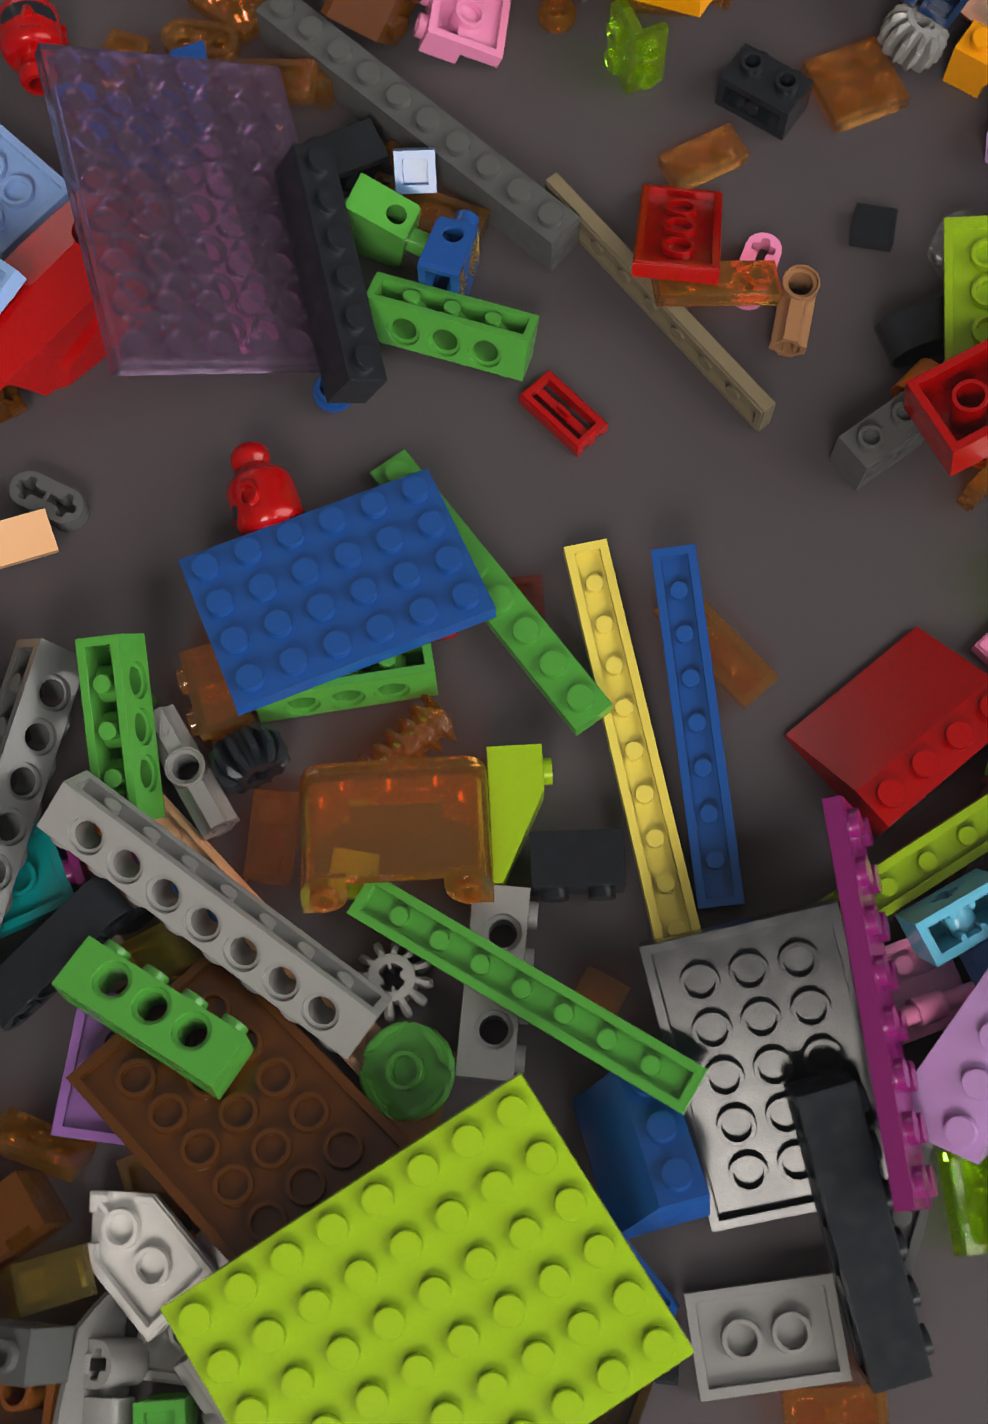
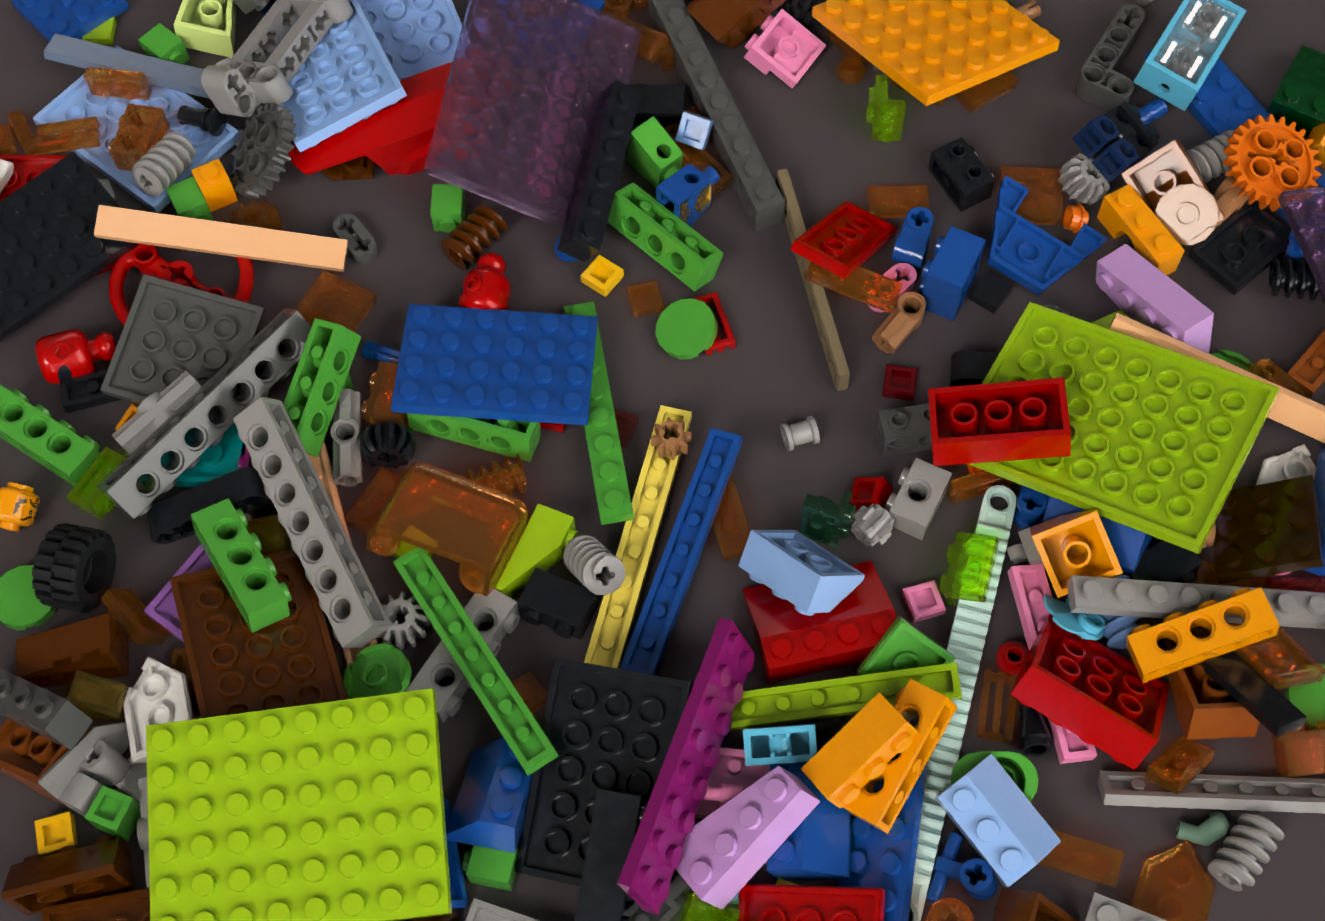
camera: 25 degrees right, 10 degrees down
(71, 601) = (336, 301): none -> clear orange plate
(150, 407) = (447, 207): none -> bright green brick
(175, 638) = (384, 353): none -> blue axle
(202, 431) = (472, 234): none -> reddish brown piece
(396, 411) = (602, 275): none -> yellow plate
(464, 417) = (645, 299): none -> clear orange tile
(540, 433) = (686, 328): none -> bright green tile
(600, 794) = (593, 565): none -> light grey piece
(610, 573) = (671, 438): none -> medium nougat gear
(682, 1245) = (490, 867): none -> bright green brick
(749, 505) = (800, 433): none -> light grey bush
(753, 196) = (914, 237): none -> blue piece
(828, 219) = (951, 272): none -> blue brick
(829, 387) = (899, 382): none -> dark red tile
(850, 601) = (825, 520): none -> clear green bracket
(852, 682) = (798, 570): none -> light blue slope
(870, 545) = (870, 490): none -> red slope
(891, 155) = (1029, 252): none -> blue wing
(900, 582) = (872, 525): none -> light grey gear
(924, 90) = (1075, 217): none -> orange plate
(944, 502) = (923, 480): none -> light grey brick

